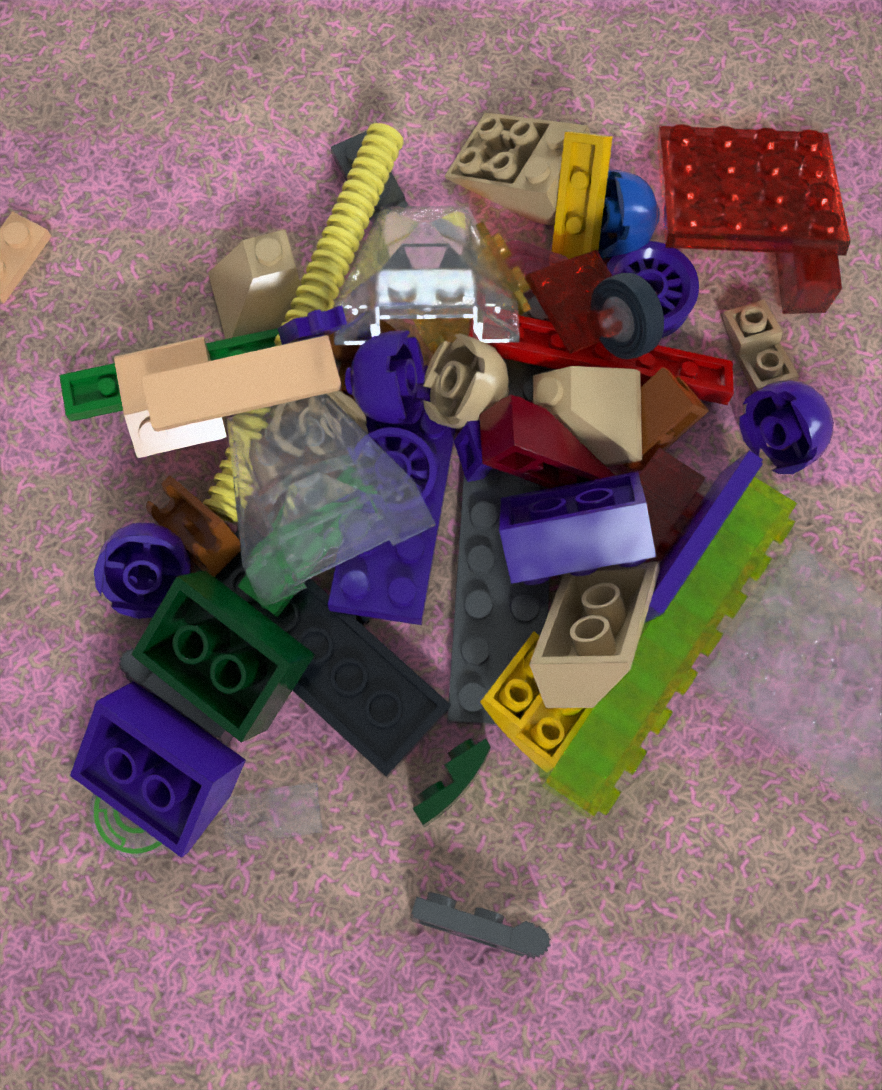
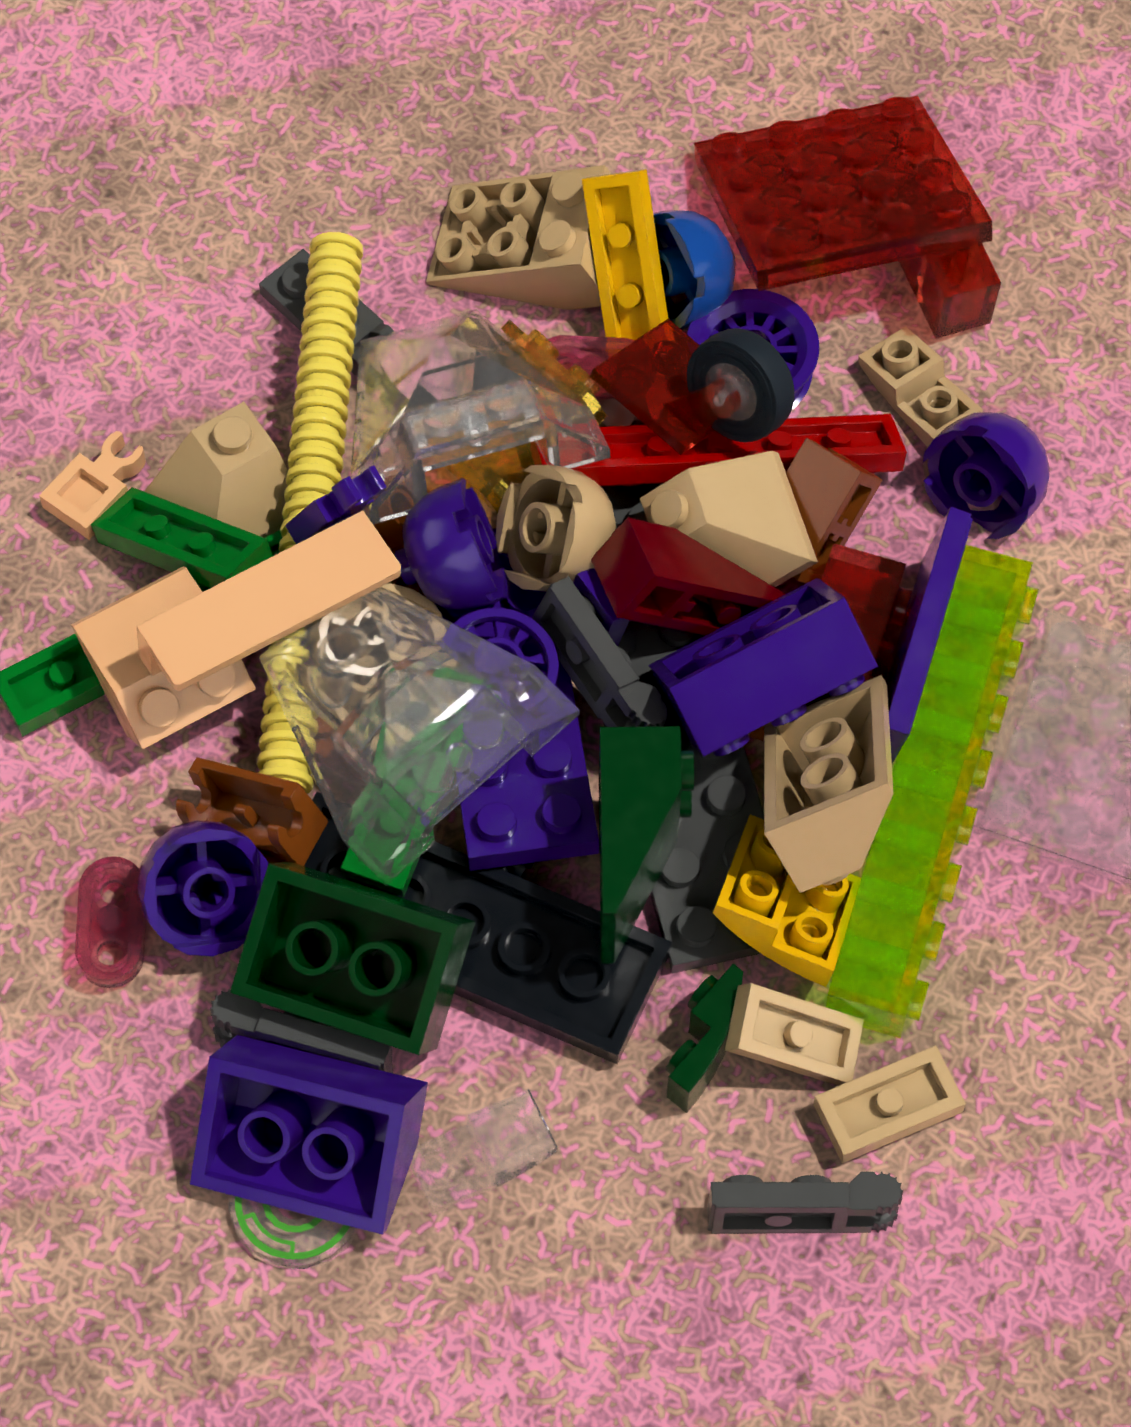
camera: 20 degrees left, 10 degrees down
(76, 572) = (110, 925): none -> clear pink plate
(170, 262) = (89, 487): none -> light nougat plate
(213, 315) = (178, 537): none -> green plate
(449, 616) = (641, 797): none -> dark green slope
(462, 492) = (595, 661): none -> dark grey hinge
(512, 802) = (794, 1034): none -> tan plate
(564, 870) = (889, 1104): none -> tan plate

